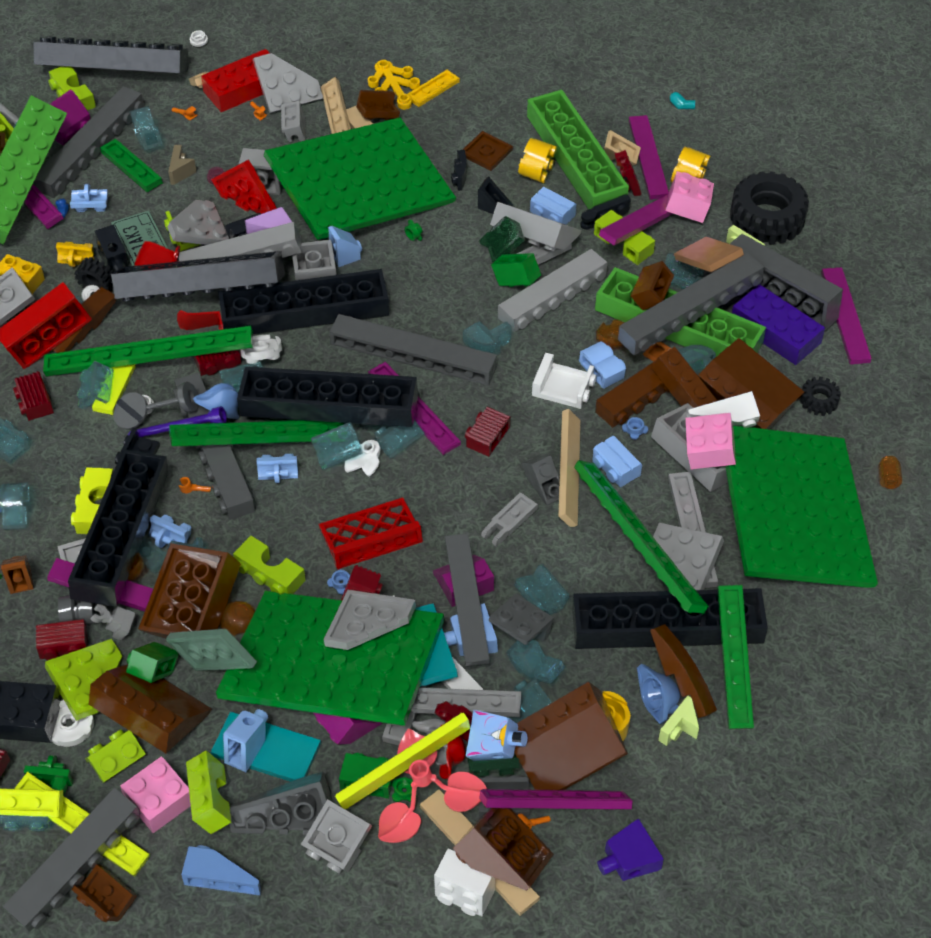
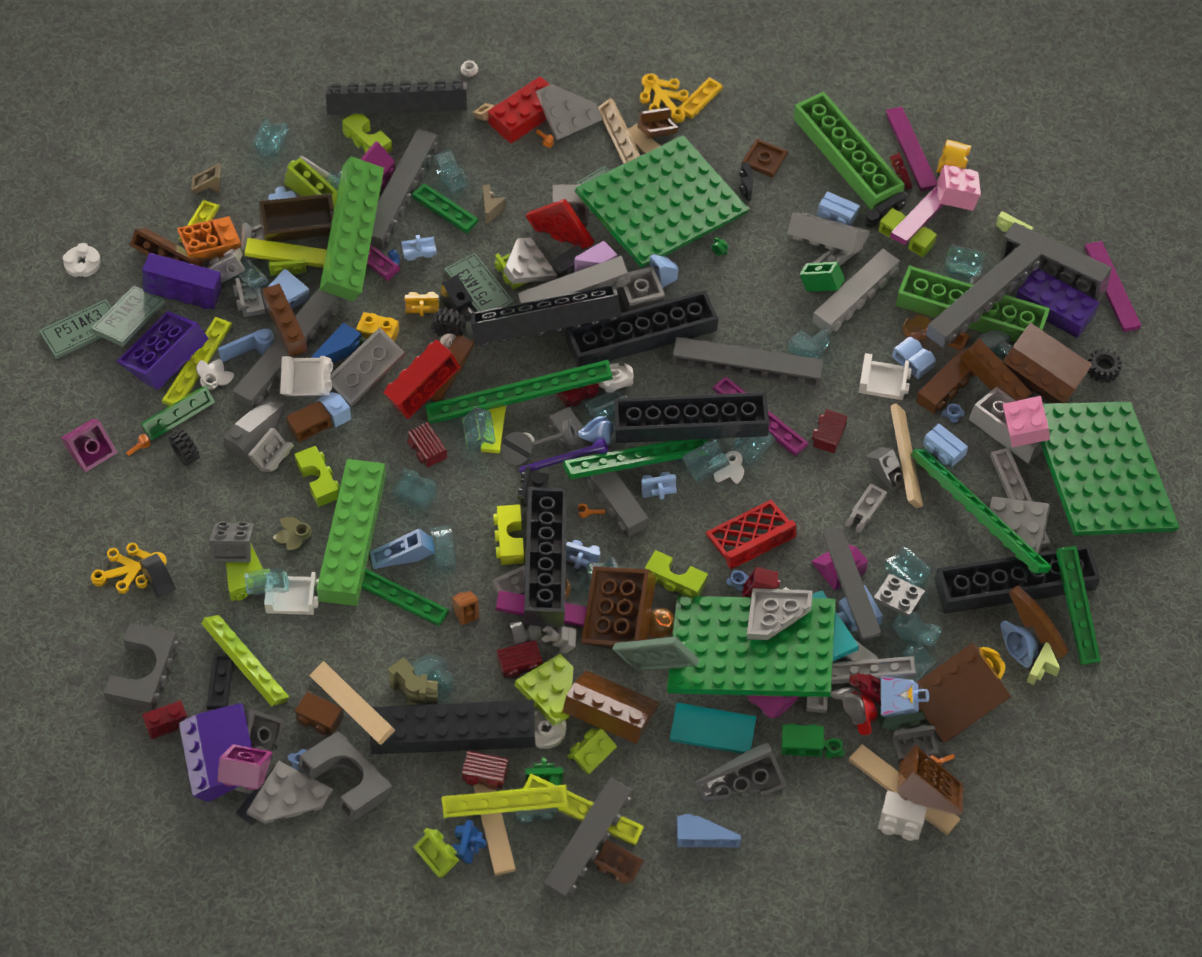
camera: 10 degrees left, 5 degrees up
(152, 662) = (603, 669): green brick -> none
(153, 253) = (494, 297): red piece -> none
(157, 794) = (640, 775): bright pink brick -> none
(188, 113) = (482, 149): orange hand -> none
(194, 321) = (544, 358): red piece -> none
(207, 805) = (676, 764): lime arch -> none
(213, 172) = (526, 206): clear pink plate -> none
(244, 739) = (700, 717): light blue torso -> none
(293, 120) = (582, 147): light grey hinge -> none
(336, 837) = (791, 793): light grey plate -> none
(402, 761) = (834, 725): neon yellow tile -> none
(462, 794) = (838, 717): coral plant -> none
(489, 195) = (782, 207): black slope -> none
(503, 238) = (803, 248): clear green bracket -> none
(537, 160) = (816, 165): yellow brick -> none
(555, 799) = (959, 740): magenta tile -> none
(616, 143) = (887, 144): tan slope -> none
(631, 853) = (1025, 775): dark purple torso -> none
(652, 285) = (947, 282): reddish brown brick -> none
(680, 103) = (929, 90): teal arm -> none
(708, 254) = (989, 245): medium nougat tile -> none
(742, 409) = (1046, 388): white slope -> none
(775, 191) = (1033, 173): black tyre -> none
(890, 472) = (1173, 428): clear orange brick -> none

